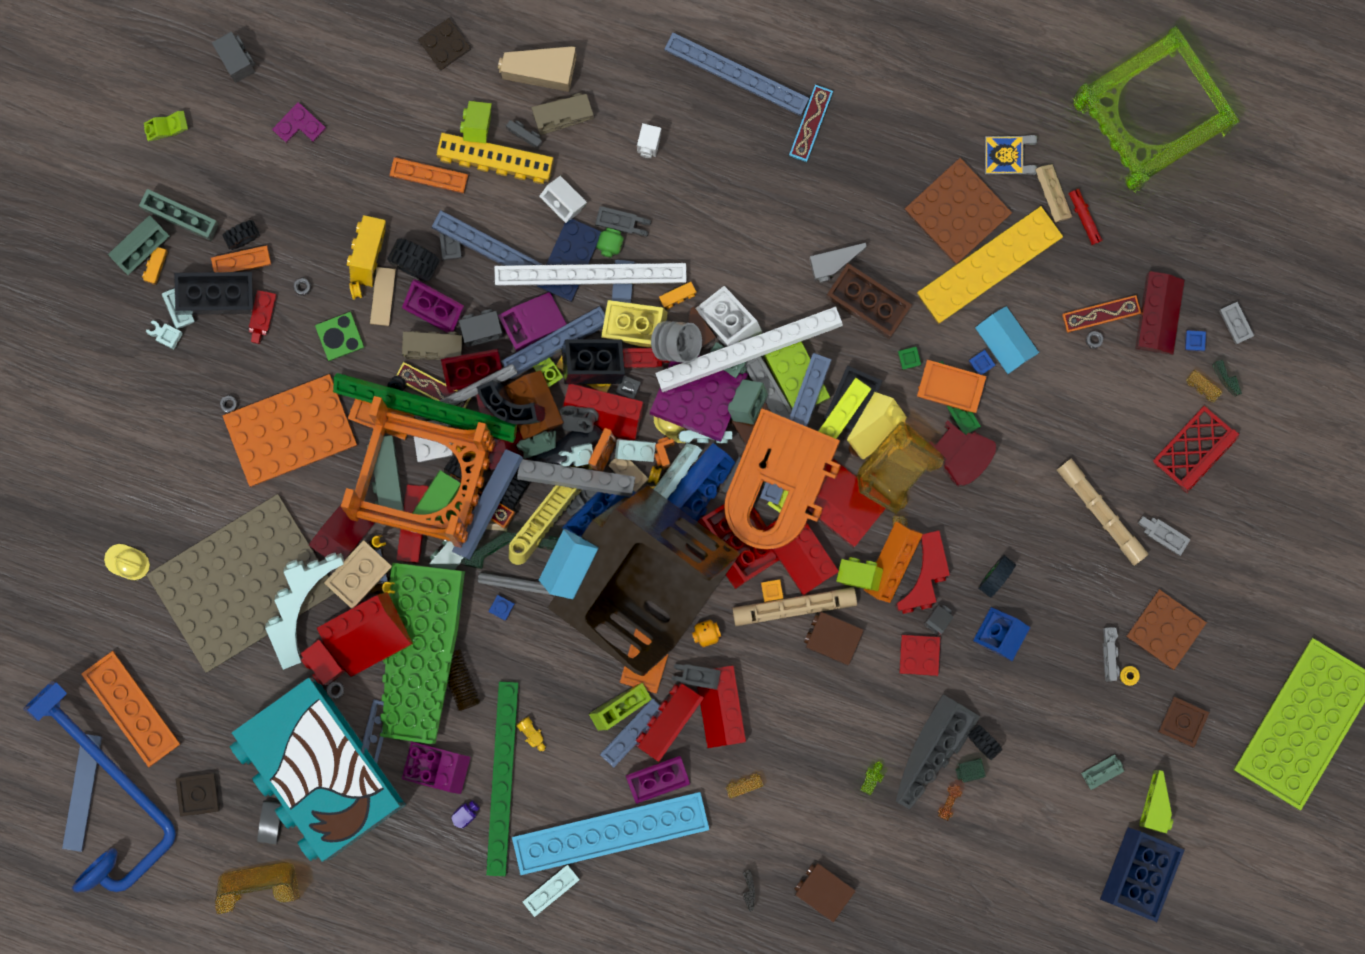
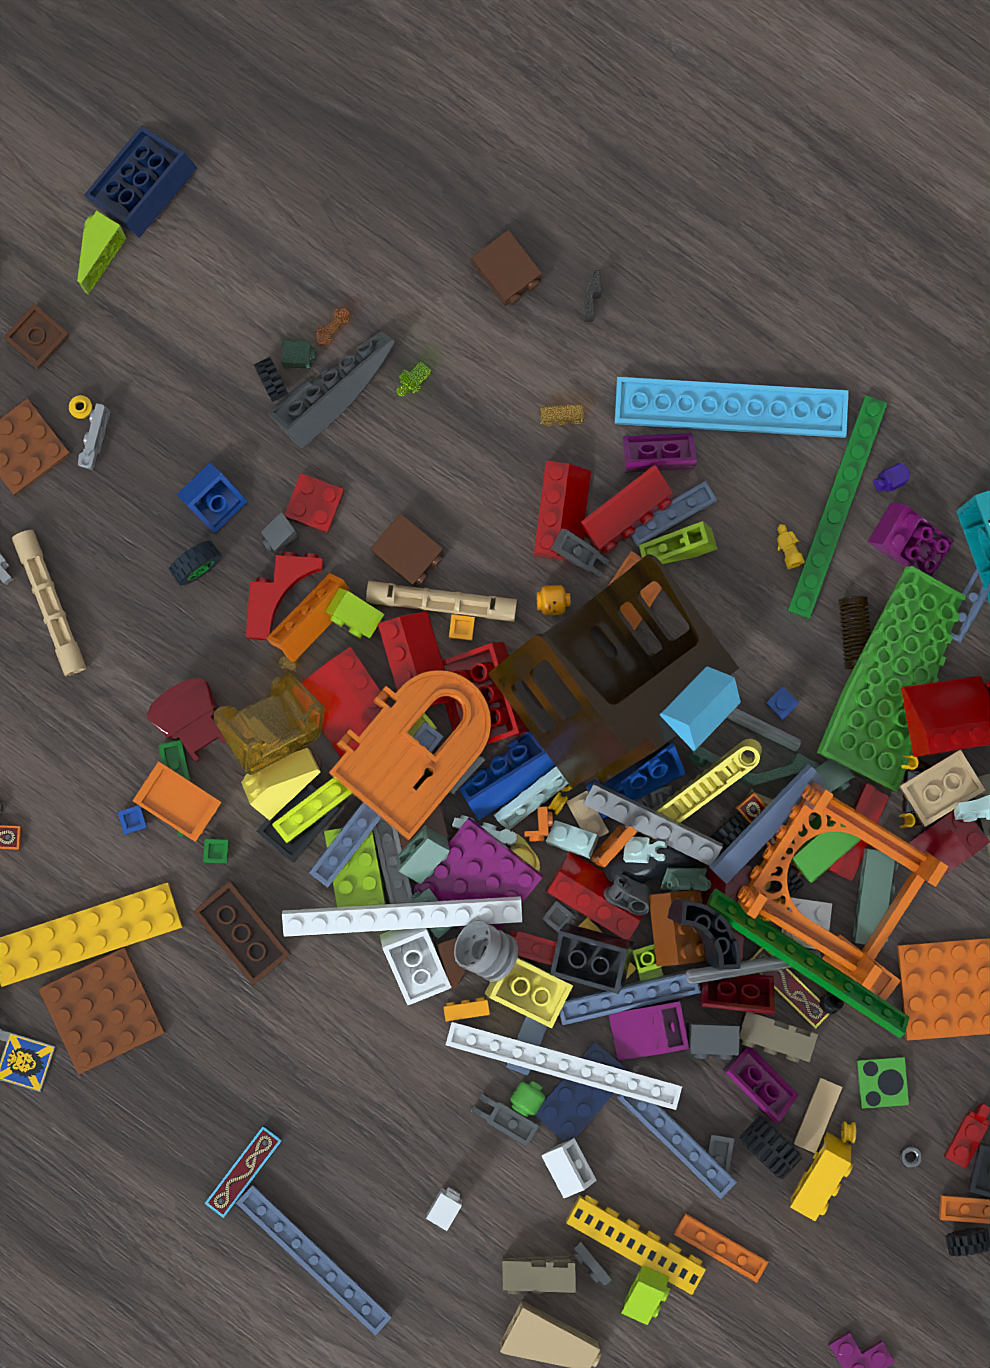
camera: 165 degrees left, 0 degrees up
(551, 890) = (818, 363): light aqua plate -> none
(830, 263) = (272, 993): light grey slope -> none
(1006, 340) = (94, 838): medium azure slope -> none
(1102, 772) = (147, 308): sand green hinge -> none

